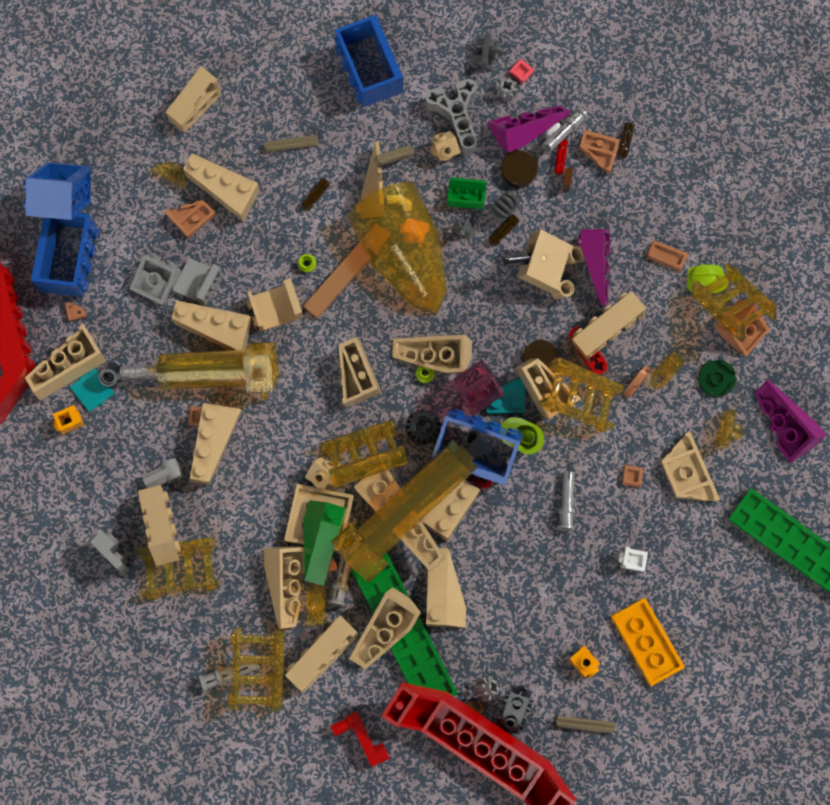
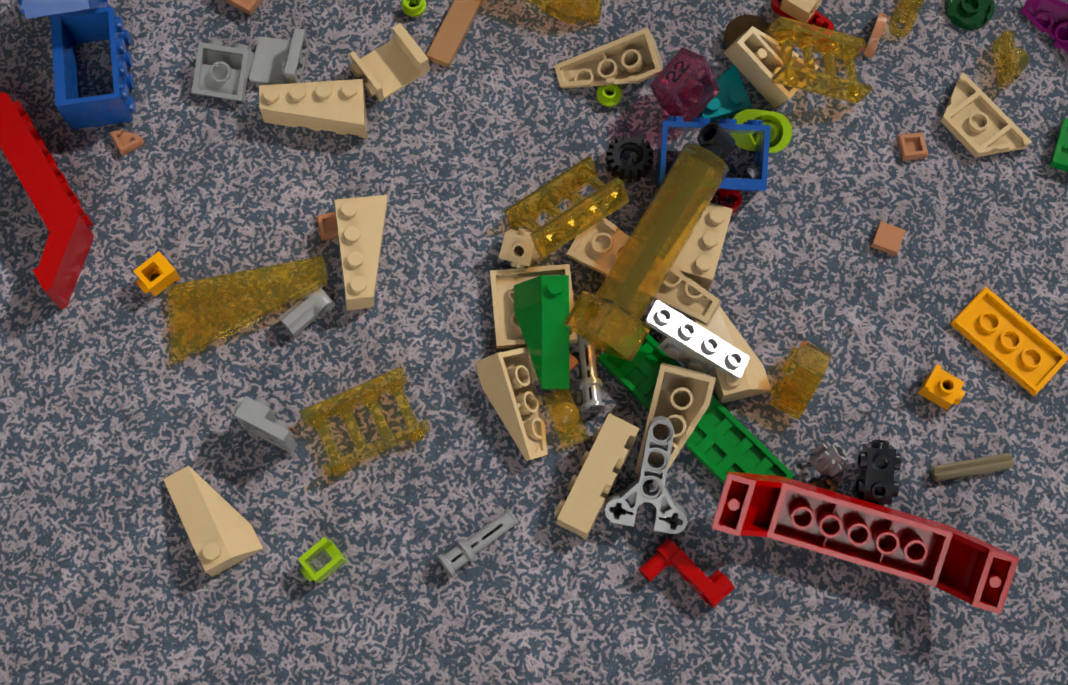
camera: 20 degrees left, 5 degrees down
(57, 609) = (213, 526): none -> tan wedge
(65, 364) = (133, 204): tan wedge -> none
(91, 390) = (177, 231): teal piece -> none
(111, 455) = (228, 303): none -> clear yellow wing
(121, 655) = (321, 560): none -> lime window
(158, 525) = (324, 371): tan wedge -> none
(252, 367) = (322, 160): clear yellow piece -> none
(274, 660) = (536, 504): clear yellow fence -> none
(357, 375) = (525, 114): tan wedge -> none
(360, 682) = (661, 498): none -> light grey beam
(416, 582) = (693, 343): none -> bracket
(485, 626) = (802, 376): none -> clear yellow brick
(566, 510) = (847, 207): light grey pin -> none
(588, 540) = (888, 238): none -> nougat tile
(633, 559) = (953, 243): white bracket -> none

